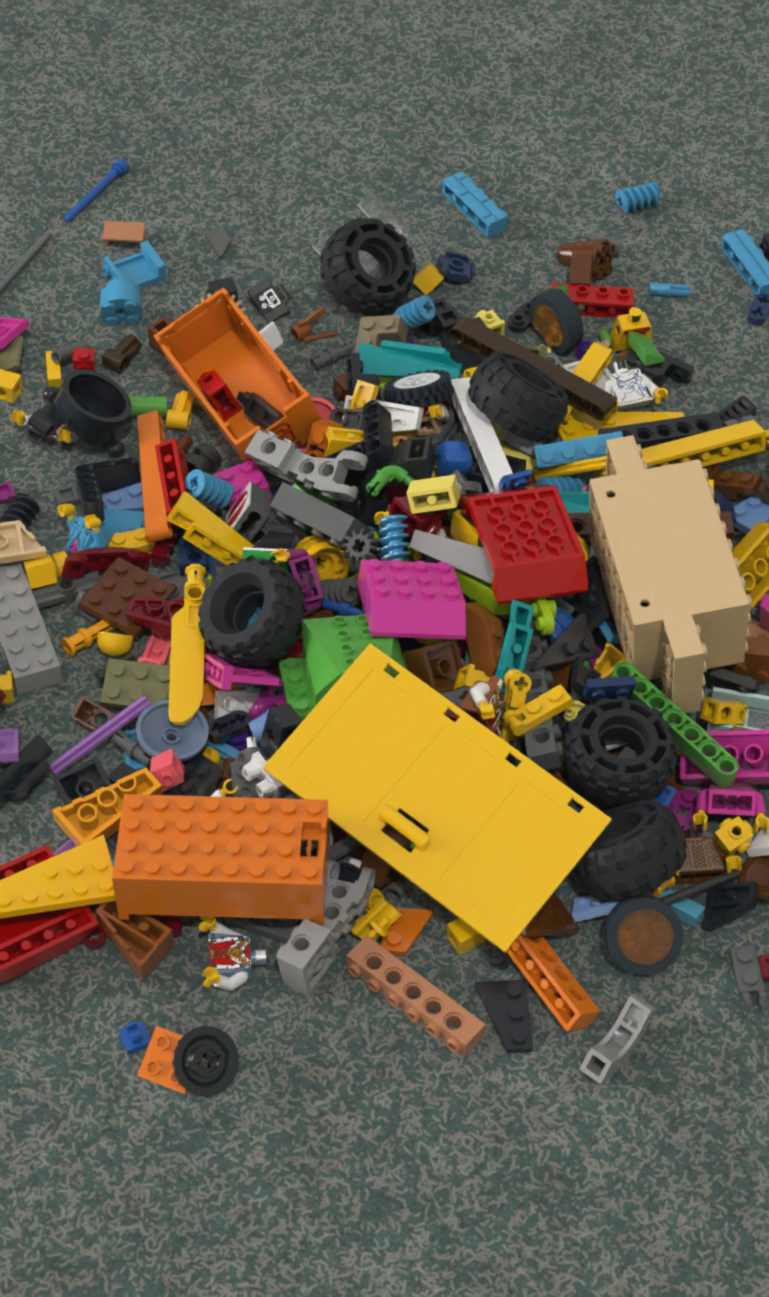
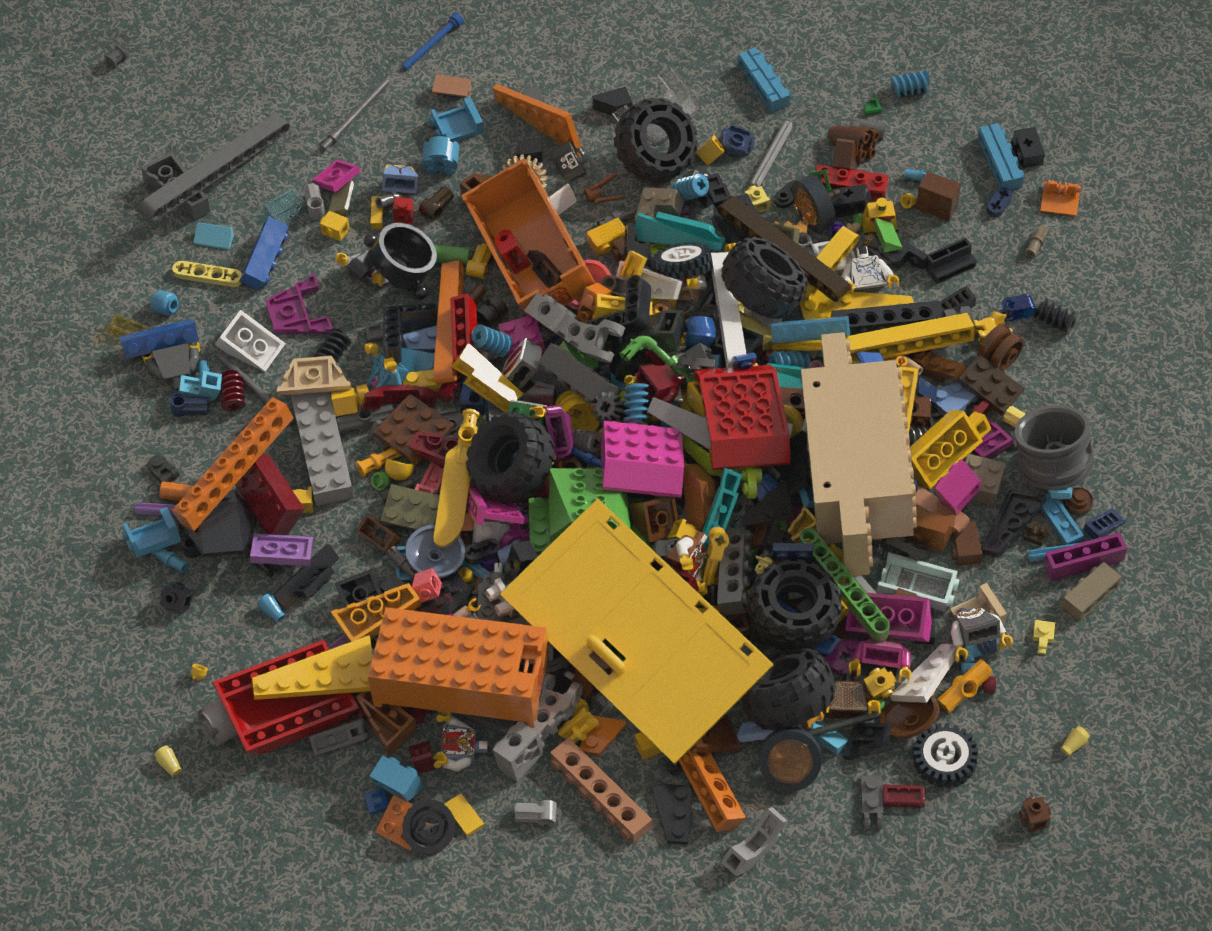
camera: 10 degrees right, 5 degrees up
(76, 962) = (338, 736): none -> dark grey plate
(77, 330) = (399, 179): none -> medium blue torso
(93, 658) = (380, 480): none -> bright green plate
(99, 735) = (377, 549): medium lavender axle -> none
(158, 1004) = (396, 778): none -> dark azure slope
(186, 977) = (422, 757): none -> dark red slope
(239, 256) = (544, 117): none -> orange wing
(249, 1043) = (464, 815): none -> yellow tile
(306, 236) = (611, 101): none -> black slope
(320, 375) = (603, 236): none -> yellow brick
(345, 1031) = (539, 813): none -> light grey piece
(433, 494) = (672, 368): light yellow brick -> none
(497, 277) = (771, 154): none -> light grey axle
(538, 710) = (731, 564): yellow plate -> none
(599, 316) = (852, 200): none -> black brick
(600, 224) = (873, 107): none -> green tile
(656, 312) = (906, 198): none -> yellow hinge
(693, 305) = (938, 196): none -> reddish brown brick
(718, 371) = (950, 260): none -> black piece
(723, 711) = (892, 575): yellow leg -> none

